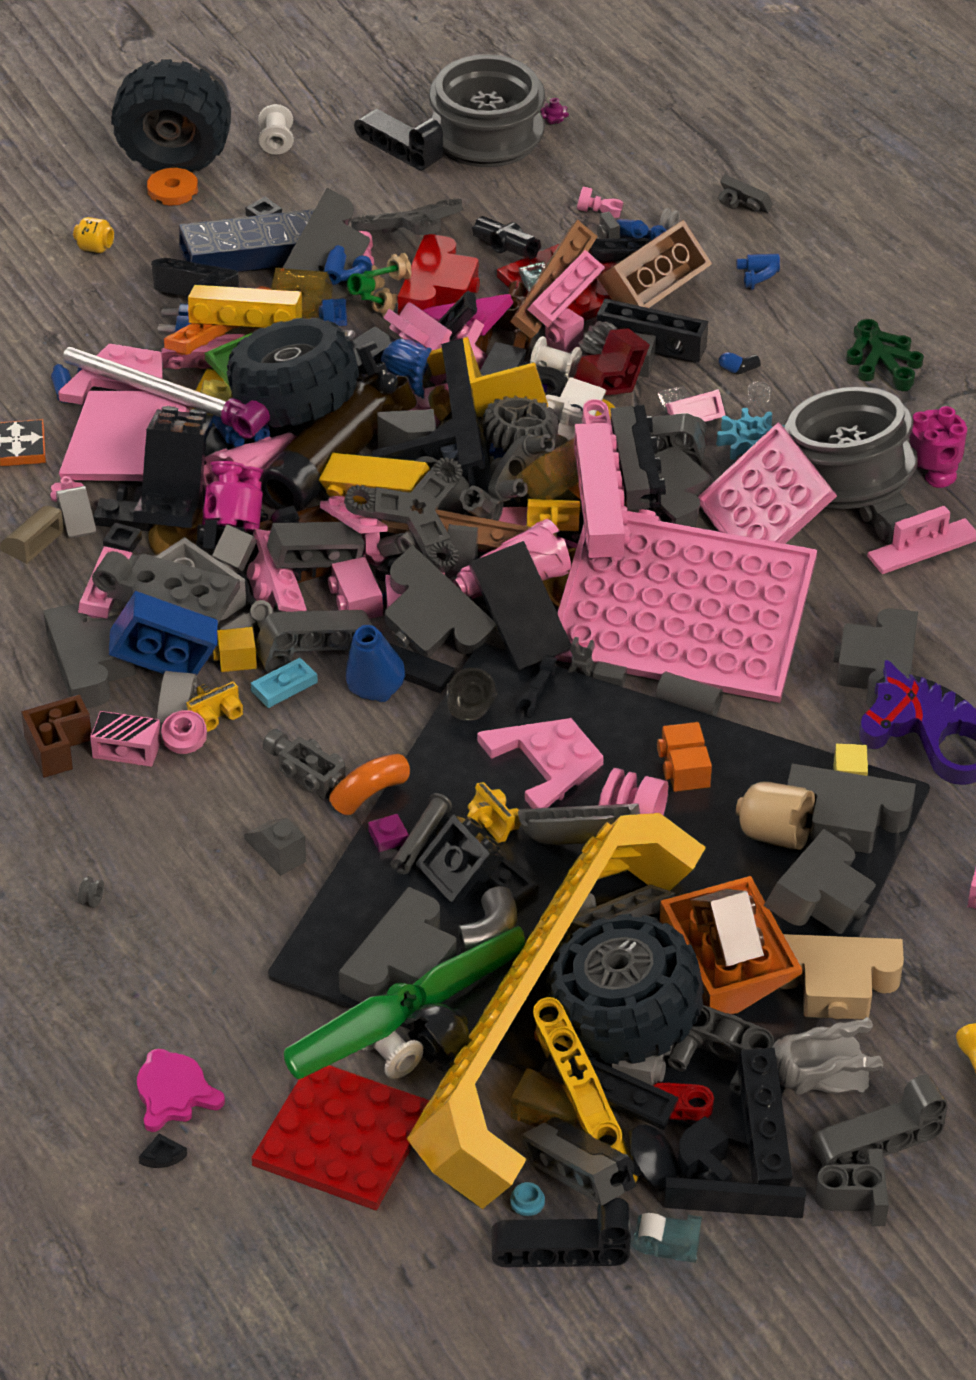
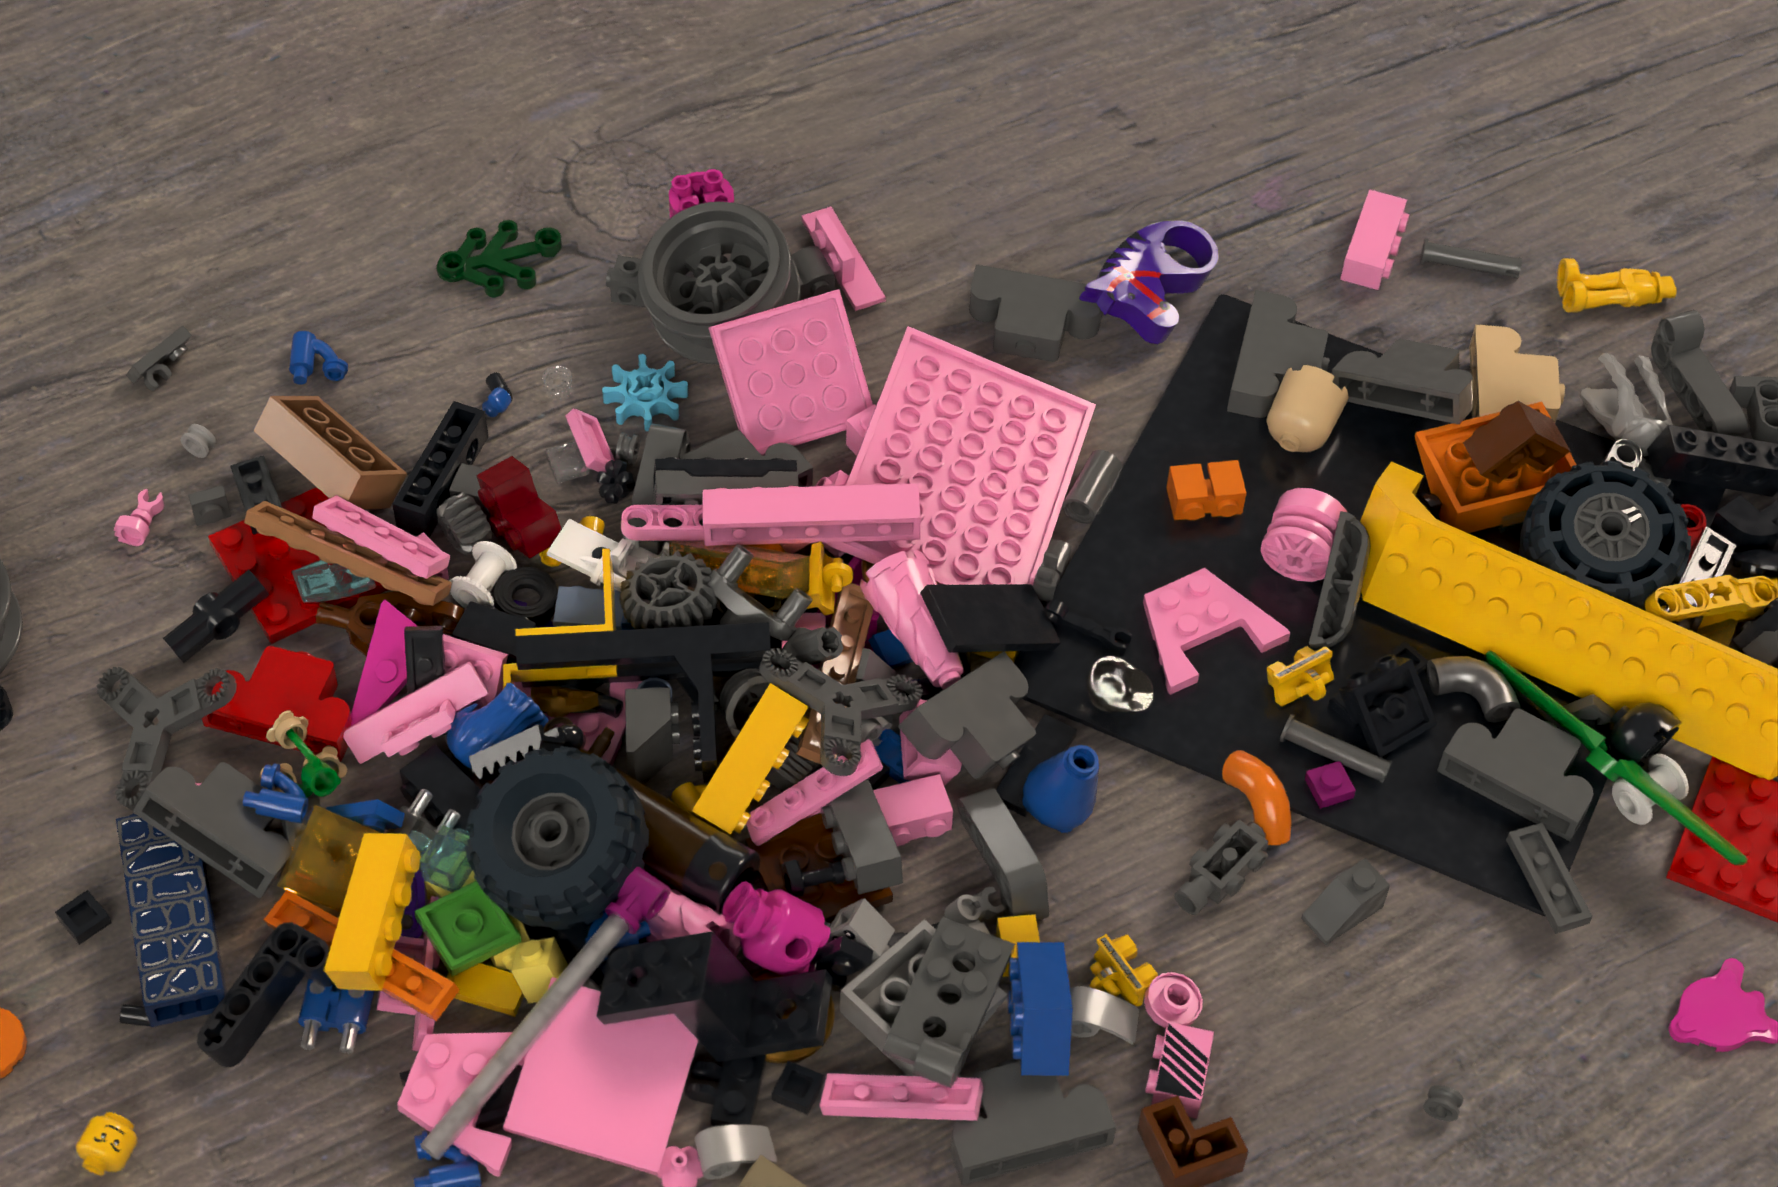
camera: 90 degrees left, 10 degrees up
(273, 583) = (900, 904): bright pink bracket -> none
(284, 682) = (1076, 895): medium azure plate -> none
(294, 964) = (1549, 878): none -> dark grey plate
(468, 1006) = (1591, 709): none -> dark grey tile
(638, 229) = (220, 470): blue plant -> none
(851, 759) = (1216, 348): light yellow brick -> none

